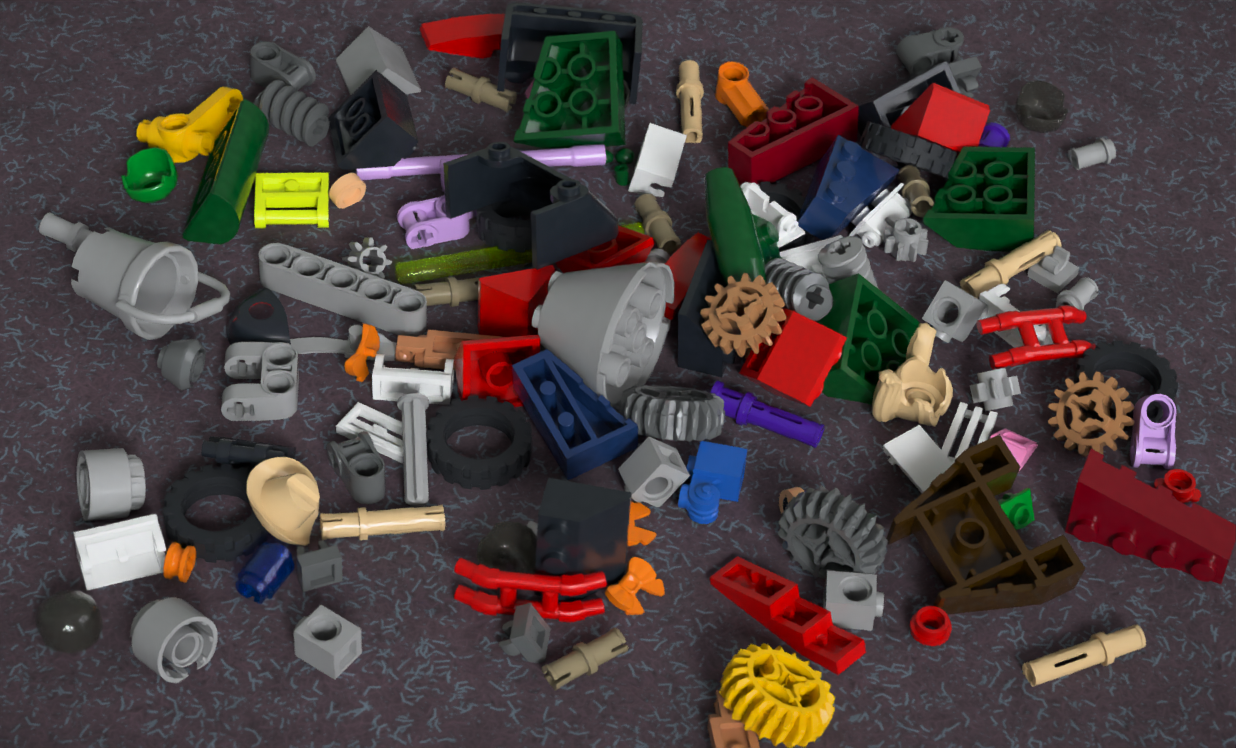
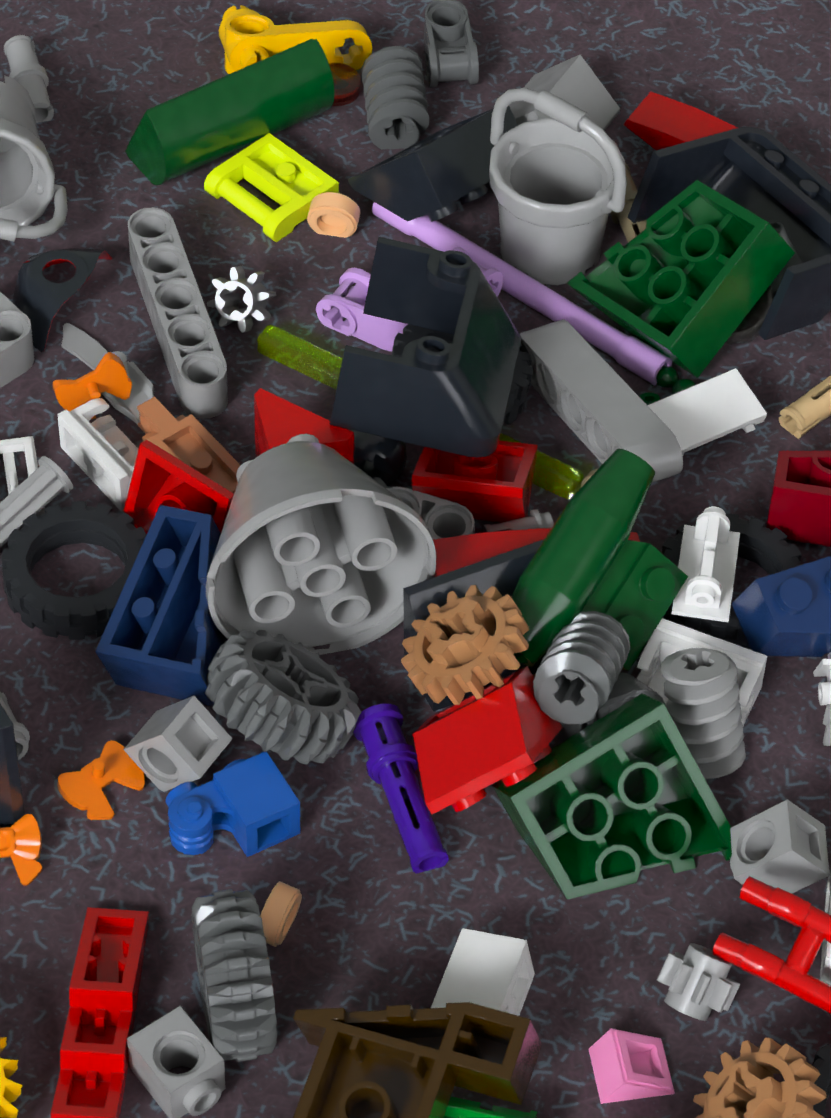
camera: 50 degrees right, 5 degrees up
(150, 175) = (171, 68): green hair -> none
(450, 291) = (288, 387): dark tan pin -> none
(465, 89) = (553, 187): none -> light grey piece
(632, 183) = (597, 400): none -> light grey beam
(914, 389) = (597, 891): tan hair -> none
(975, 417) = (574, 1041): white tile -> none

